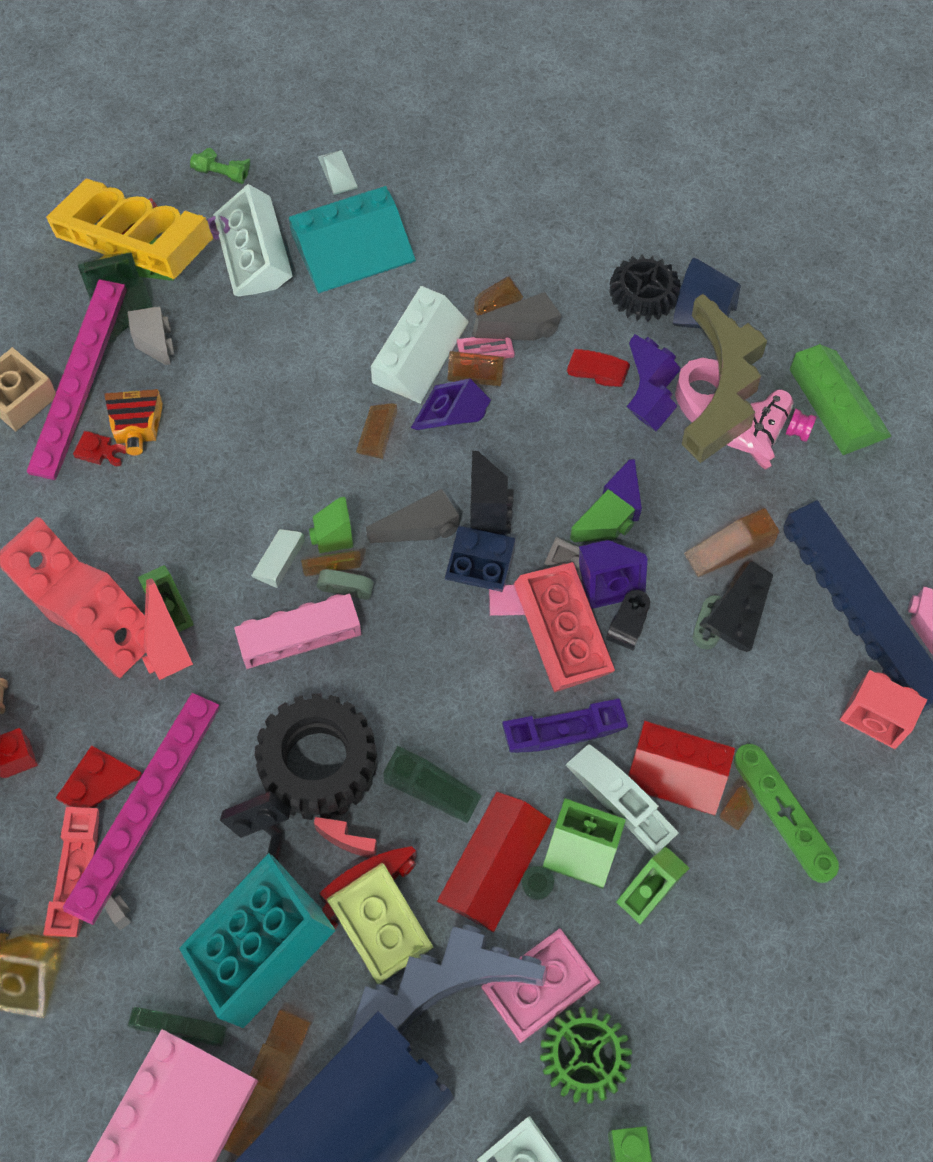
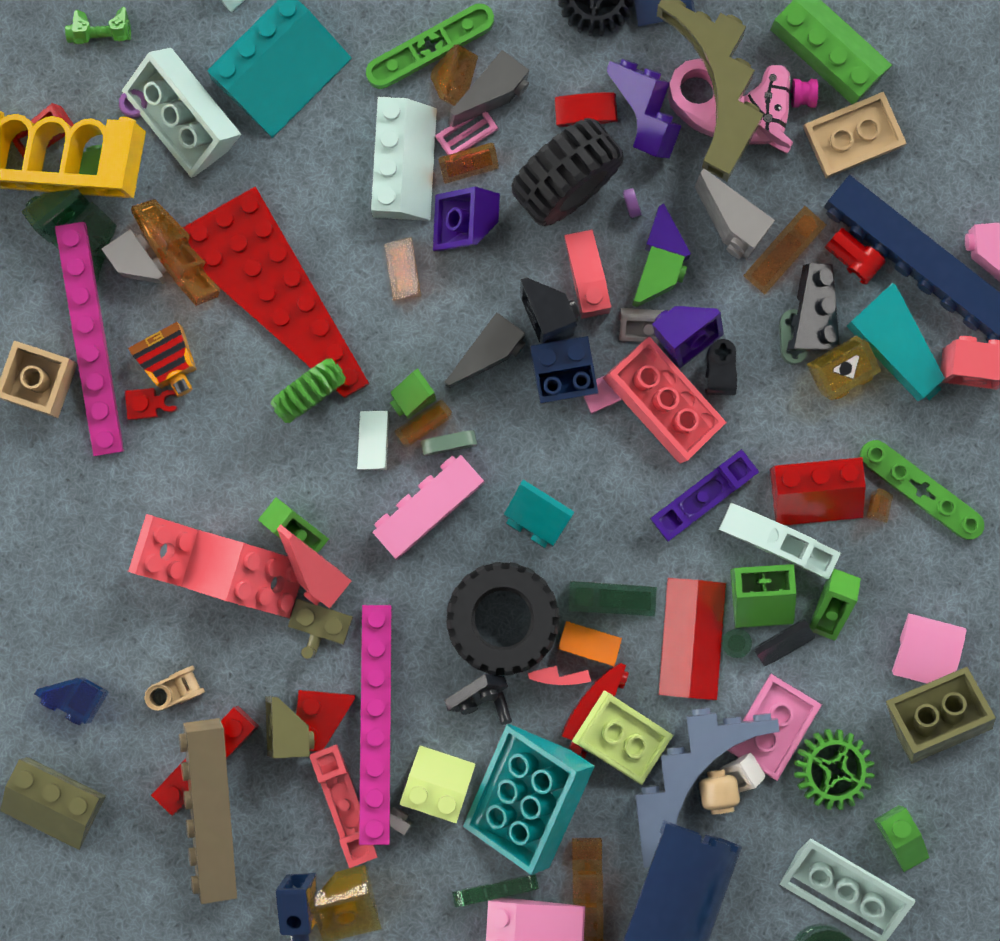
camera: 20 degrees left, 20 degrees up
(55, 772) = (285, 731): none -> olive slope
(143, 694) = (319, 623): none -> olive plate
(174, 892) = (437, 784): none -> yellowish green slope
(187, 341) = (172, 249): none -> clear orange slope
(239, 483) = (308, 390): none -> bright green gear
(253, 387) = (261, 273): none -> red wing
(390, 821) = (589, 643): none -> orange slope
(396, 671) = (537, 514): none -> teal slope
(454, 1025) = (719, 792): none -> tan head
(469, 273) = (404, 60): none -> bright green piece
(488, 1018) = (746, 771): none -> white slope
(539, 498) = (587, 274): none -> coral slope
(556, 393) = (567, 172): none -> black tyre
(586, 900) = (784, 642): none -> black slope
(606, 451) = (631, 203): none -> medium lavender tile
(697, 495) = (734, 217): none -> light grey slope
(721, 1045) = (940, 715): none -> olive slope
(734, 974) = (928, 649): none -> bright pink slope
(749, 665) = (844, 368): none -> clear yellow brick
(798, 576) = (859, 259): none -> red piece
(810, 664) = (899, 343): none -> teal slope
(835, 476) = (854, 135): none -> tan plate

